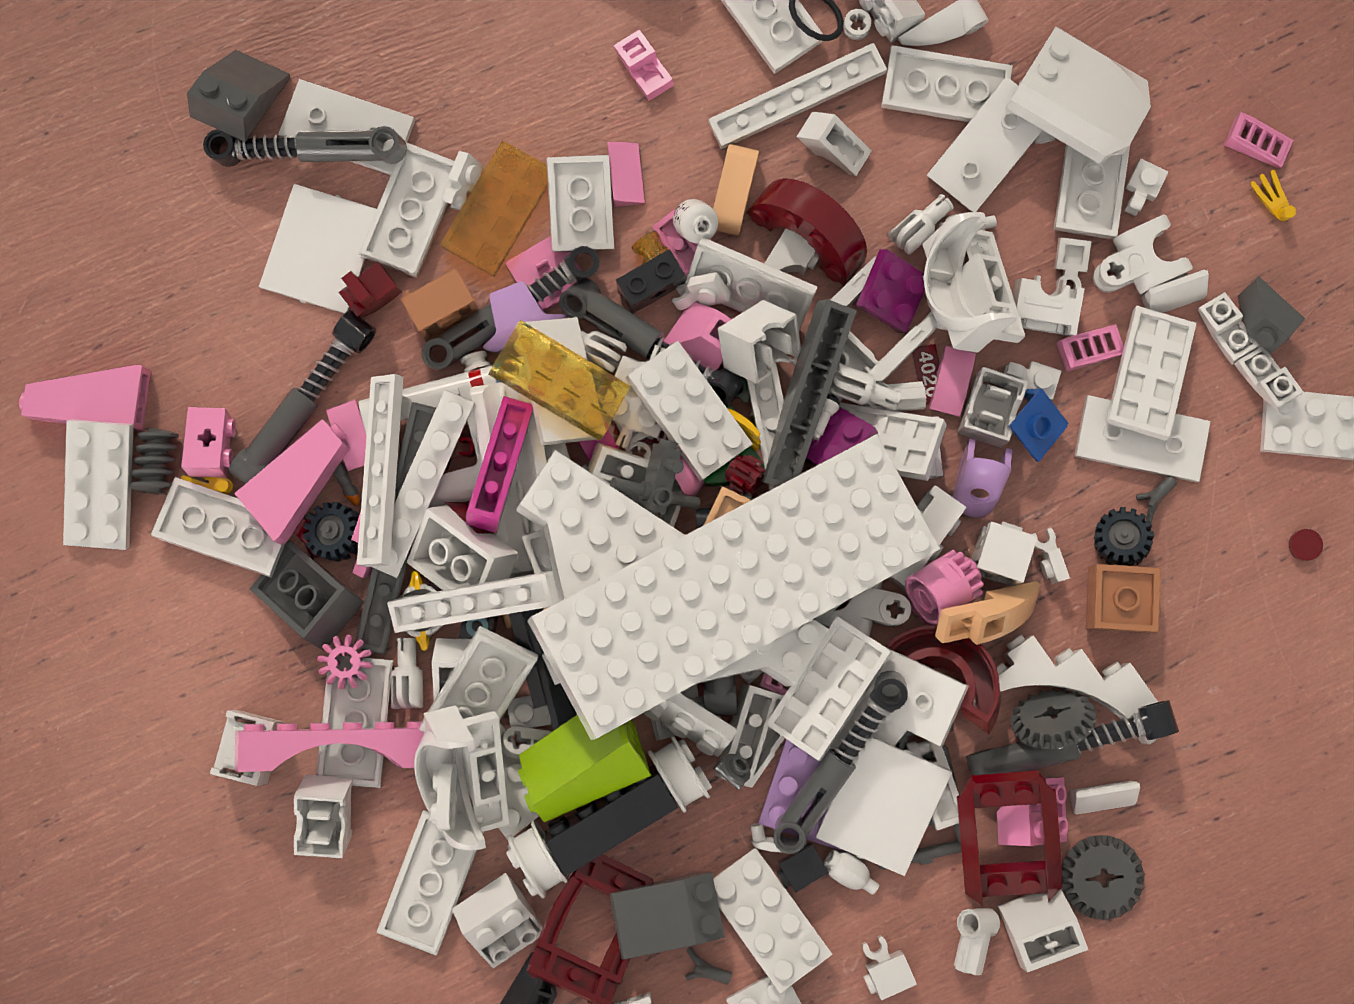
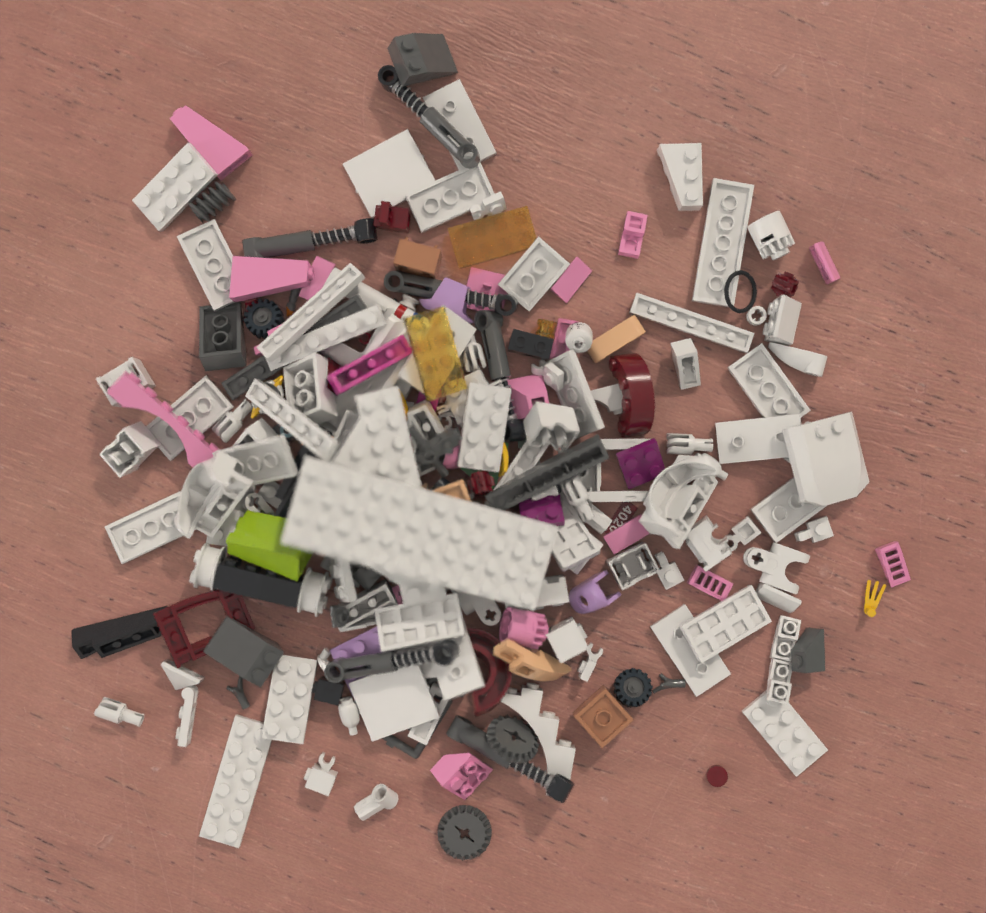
camera: 45 degrees right, 5 degrees up
(201, 428) = (247, 207): bright pink brick -> none
(218, 484) = (233, 240): yellow piece -> none
(334, 663) = (203, 382): bright pink gear -> none
(444, 810) = (199, 491): white plate -> none
(498, 920) = (165, 576): white slope -> none
(1016, 877) = (419, 790): dark red wedge -> none
(1038, 423) = (645, 595): blue piece -> none
(1042, 929) = (412, 828): white slope -> none
(1104, 797) = (502, 797): white slope -> none

